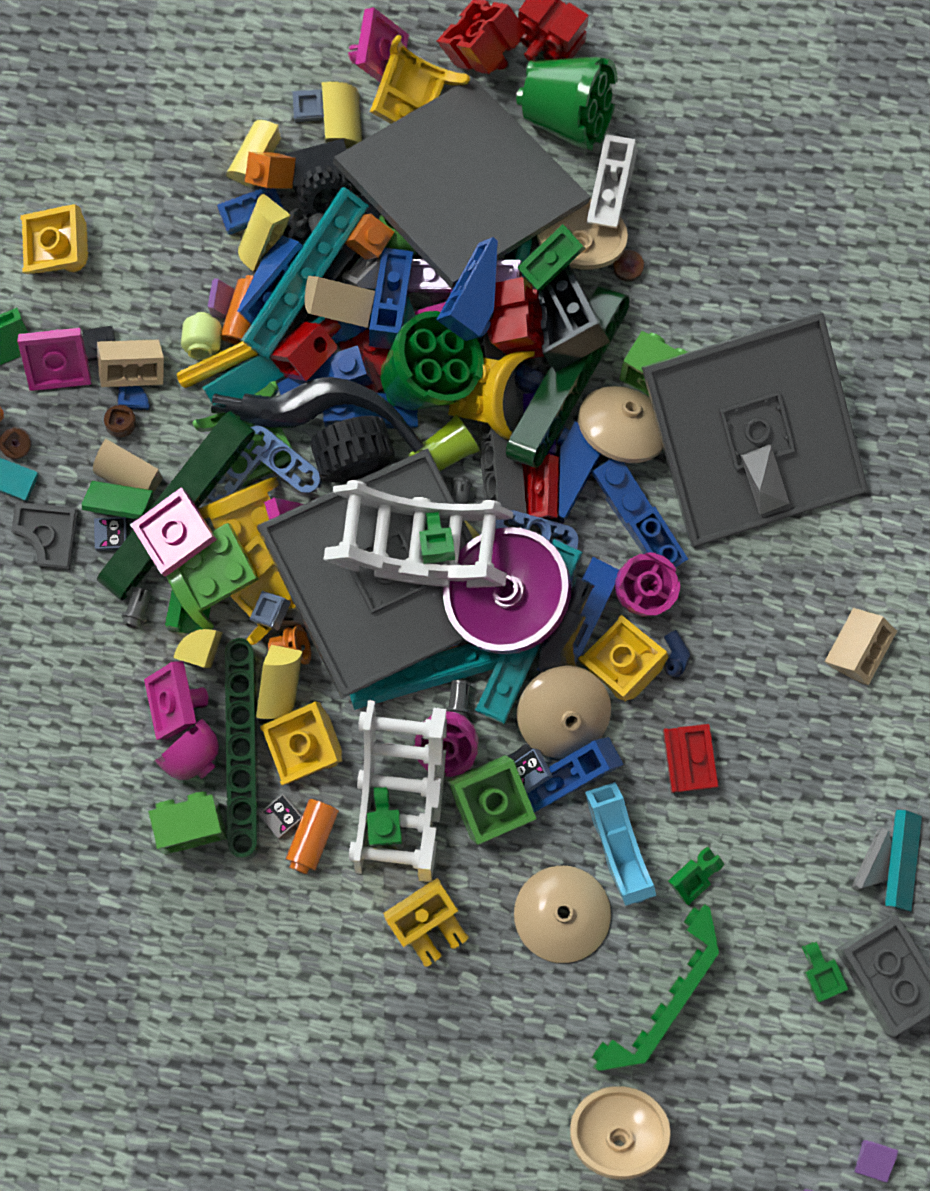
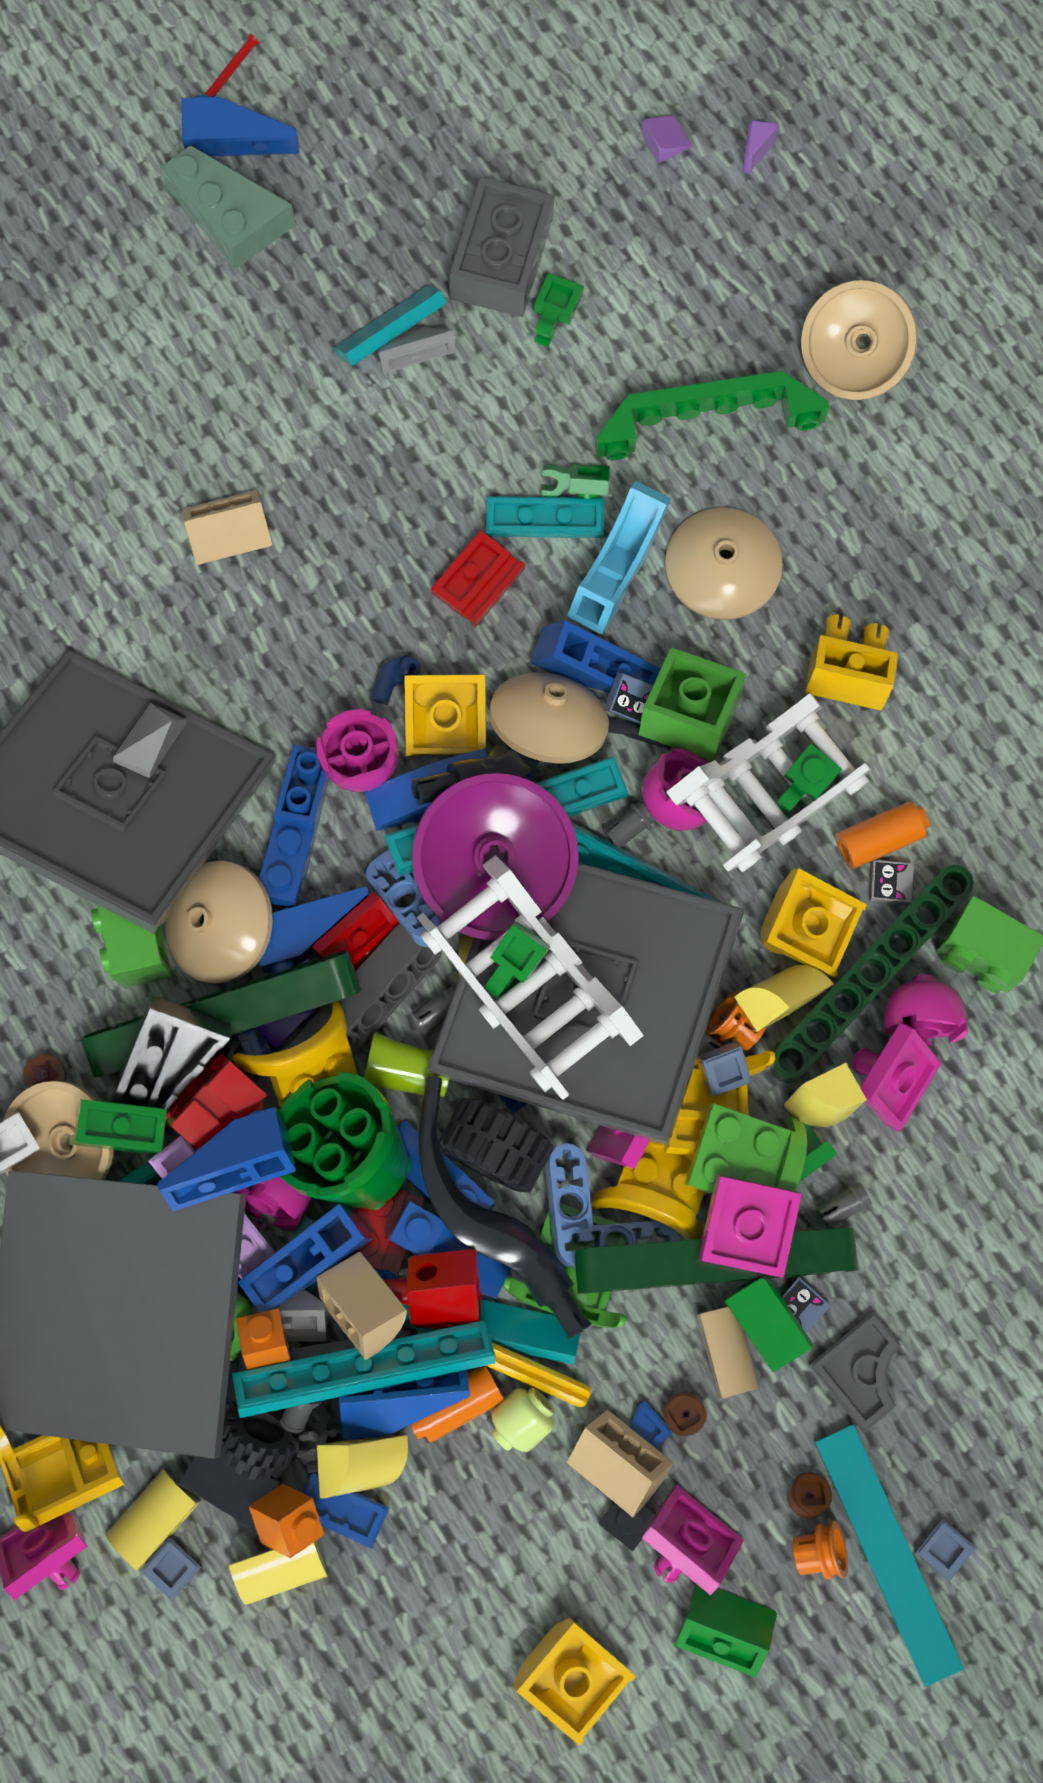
camera: 135 degrees left, 0 degrees up
(220, 298) = (464, 1440): medium lavender slope -> none
(692, 835) = (545, 517): none -> teal tile

